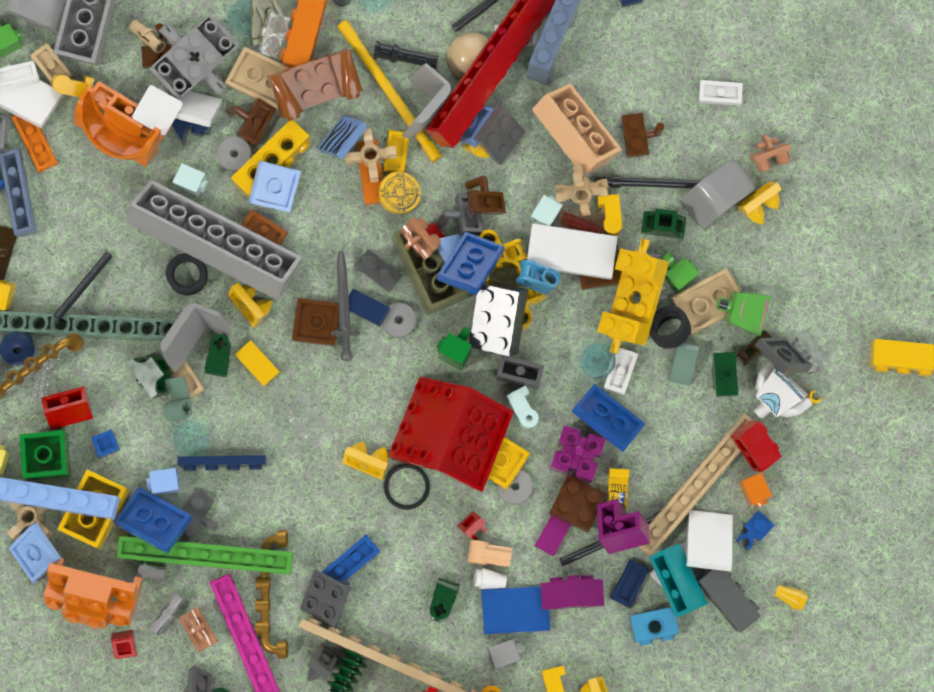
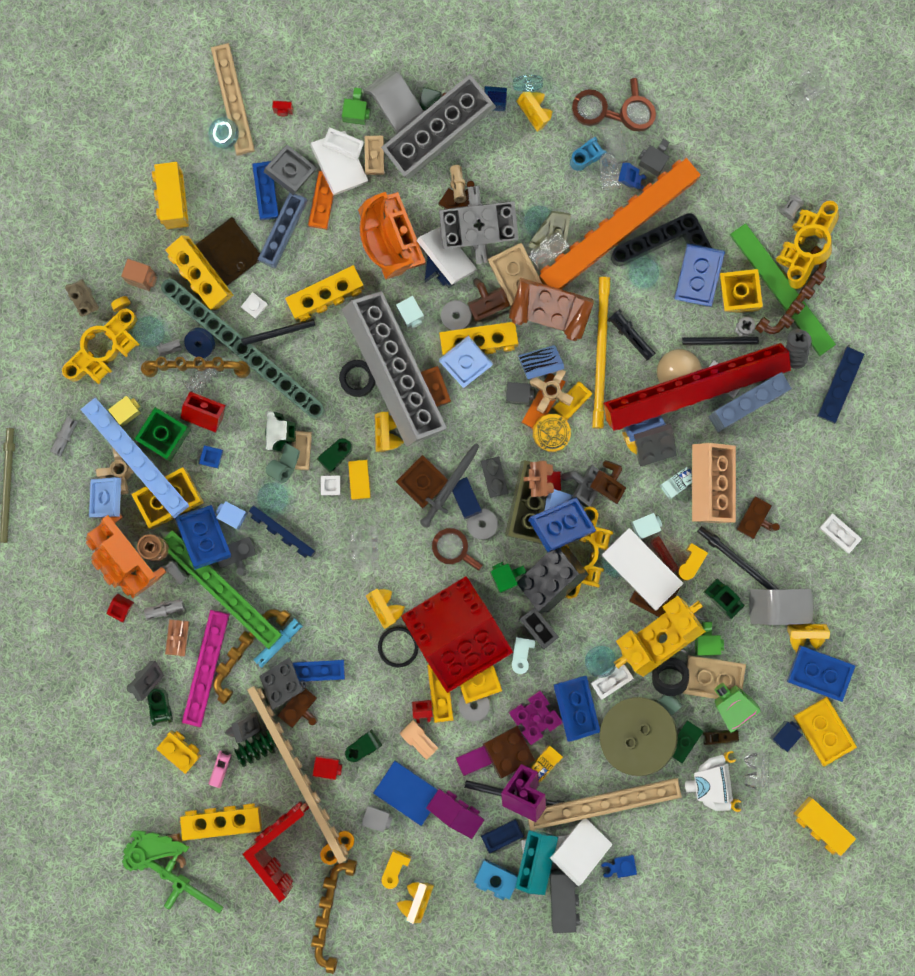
camera: 40 degrees right, 5 degrees up
(42, 279) = (254, 305): none -> white plate
(70, 86) = (377, 181): yellow leg -> none
(109, 190) = (329, 284): none -> yellow brick
(114, 563) = (152, 547): none -> medium nougat wheel
(157, 109) = (423, 244): white sticker -> none
(188, 330) = (325, 421): light grey piece -> none
(235, 387) = (330, 485): none -> white plate
(292, 580) = (287, 633): none -> medium azure pin
(343, 180) = (519, 393): none -> dark grey brick
(357, 609) = (298, 707): none -> reddish brown plate
(386, 361) = (451, 547): none -> piece
(425, 642) = (327, 767): none -> red brick
(435, 88) = (635, 380): light grey piece -> none
(478, 502) = (440, 699): none -> yellow tile
(488, 579) = (405, 757): white cone -> none
(534, 275) = (600, 567): dark azure piece -> none
(544, 154) = (677, 482): none -> light aqua leg
(581, 190) = (683, 530): tan pin -> none
(682, 401) = (638, 736): none -> olive plate
(755, 490) = (642, 839): orange brick -> none
(756, 445) = (667, 809): red brick -> none
(762, 157) = (849, 608): nougat hips -> none
(783, 355) = (736, 760): dark grey plate -> none
(792, 597) = (609, 934): yellow cone -> none
(798, 226) = (821, 673): none -> blue plate
(810, 302) = (786, 735): none -> dark blue brick
(840, 274) = (825, 731): none -> yellow tile

